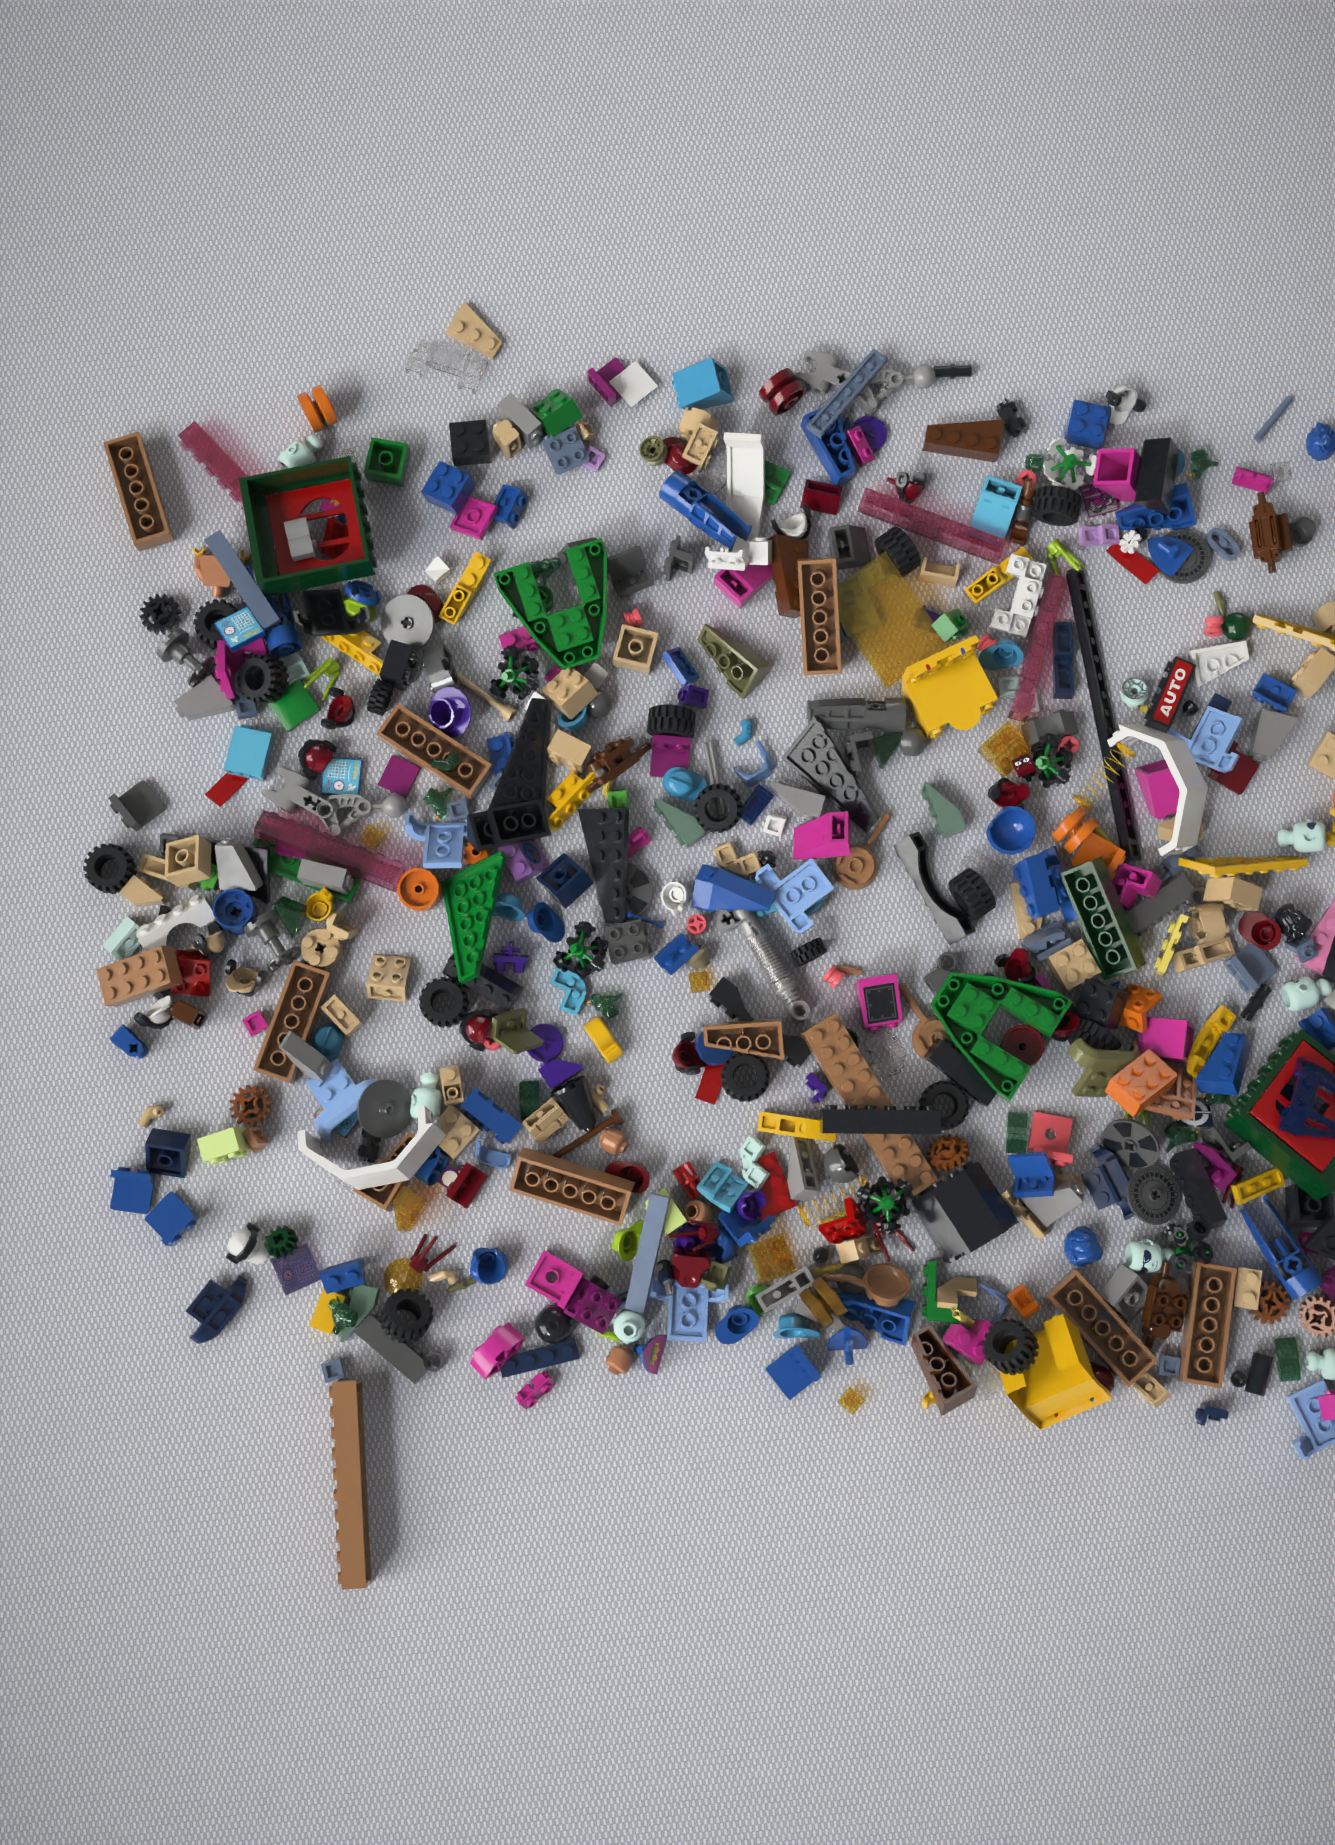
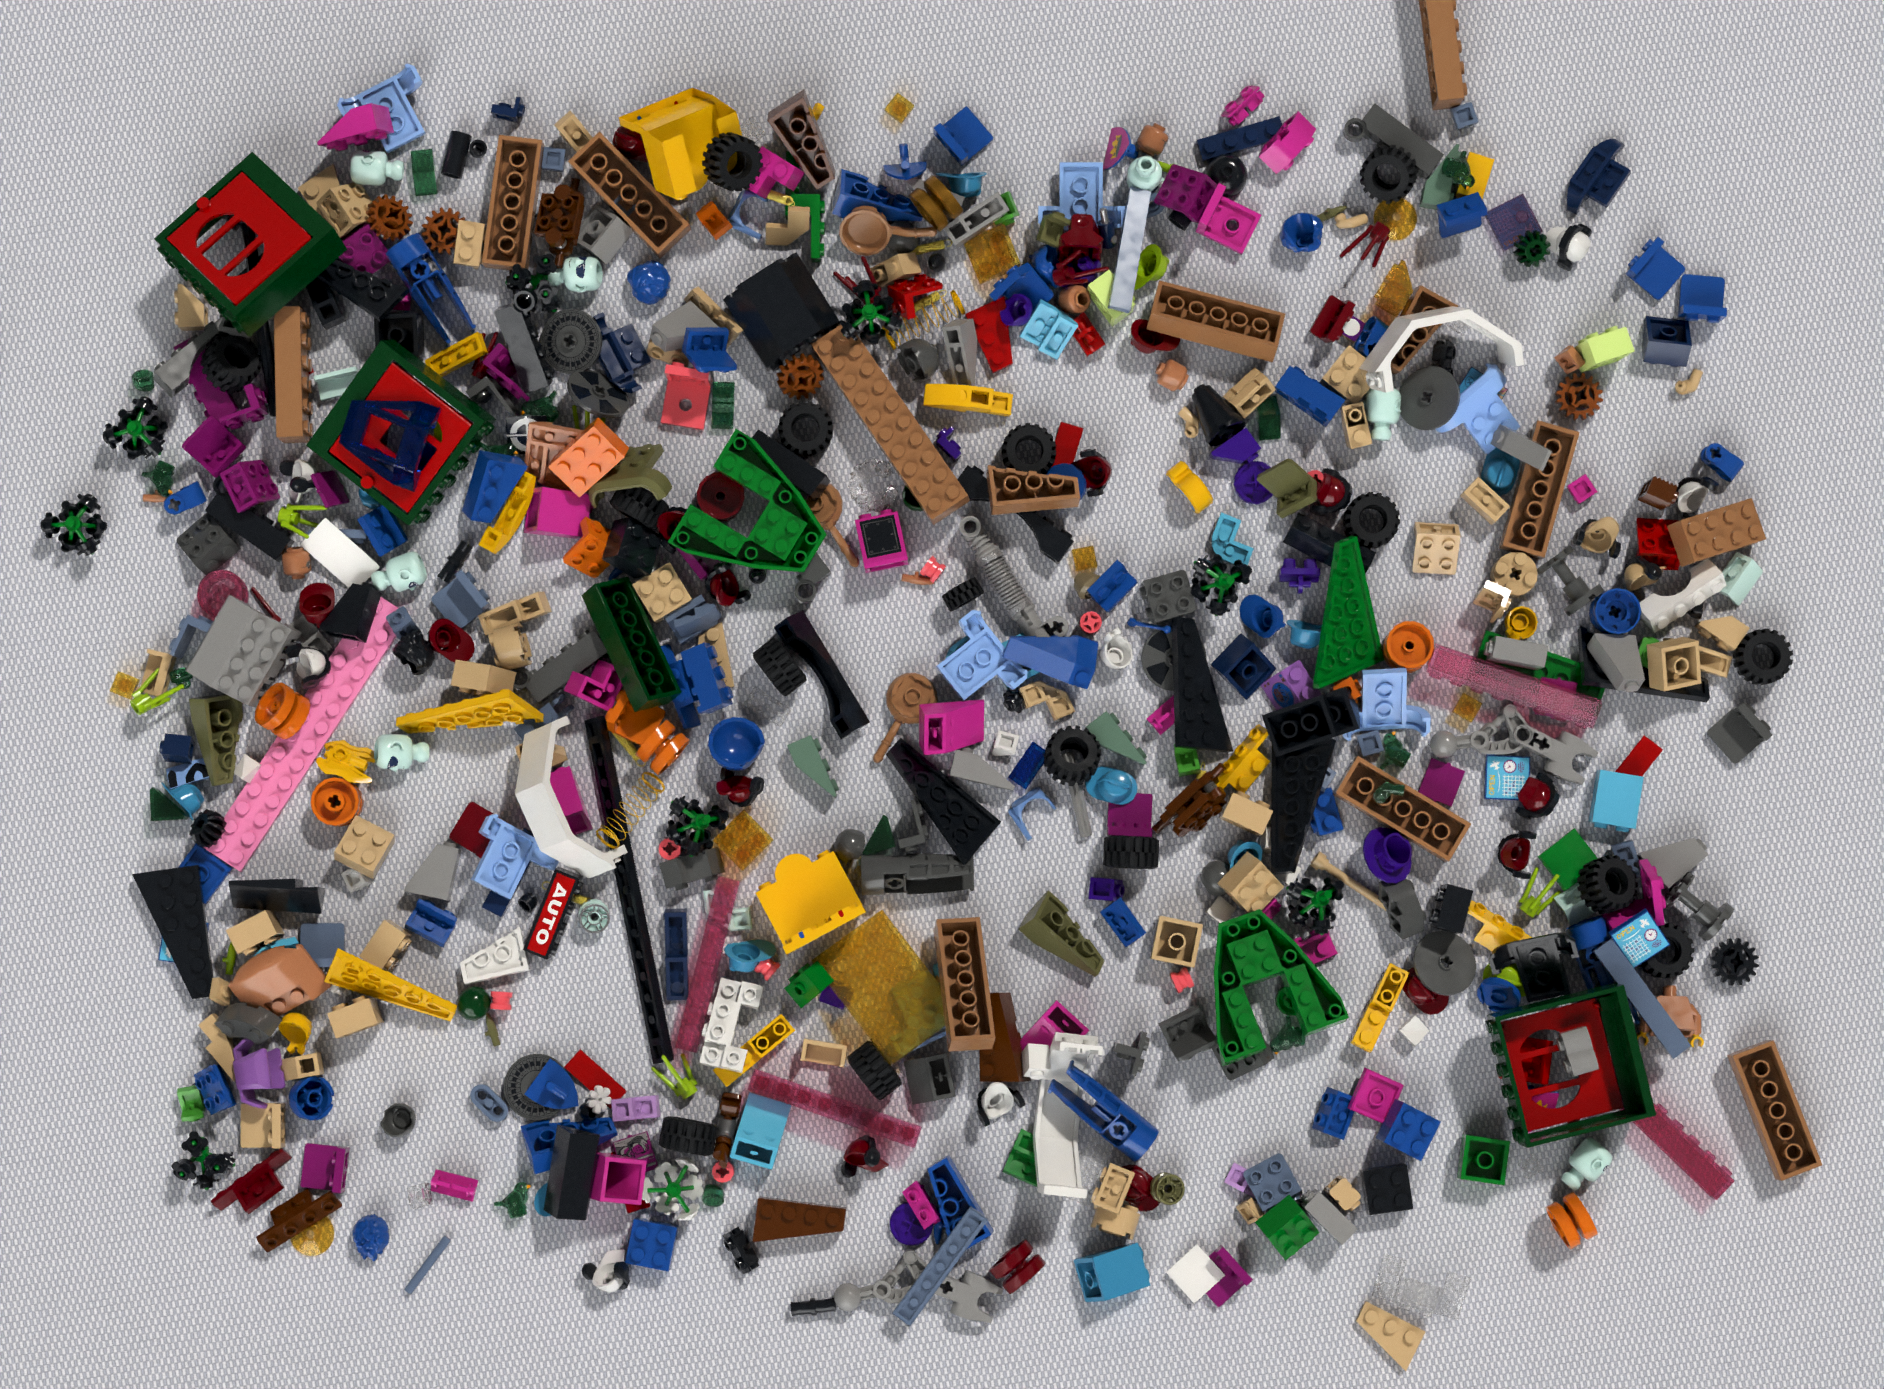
camera: 175 degrees right, 5 degrees up
(291, 914) = (1552, 612): clear green slope -> none
(380, 697) = (1470, 869): black tyre -> none
(490, 1157) = (1305, 353): medium blue helmet -> none
(605, 1004) = (1189, 527): clear green animal -> none
(616, 1117) = (1170, 400): reddish brown piece -> none
(736, 1324) = (1027, 181): blue piece -> none
(747, 732) = (1042, 850): dark azure arm -> none
(752, 1171) = (1015, 348): light aqua tile -> none
(821, 496) = (965, 1140): dark red brick -> none
(880, 1121) = (879, 401): black brick -> none
(1023, 765) = (722, 820): tile -> none
(1167, 946) = (561, 601): light yellow wing -> none
(1269, 533) = (435, 1113): reddish brown piece -> none

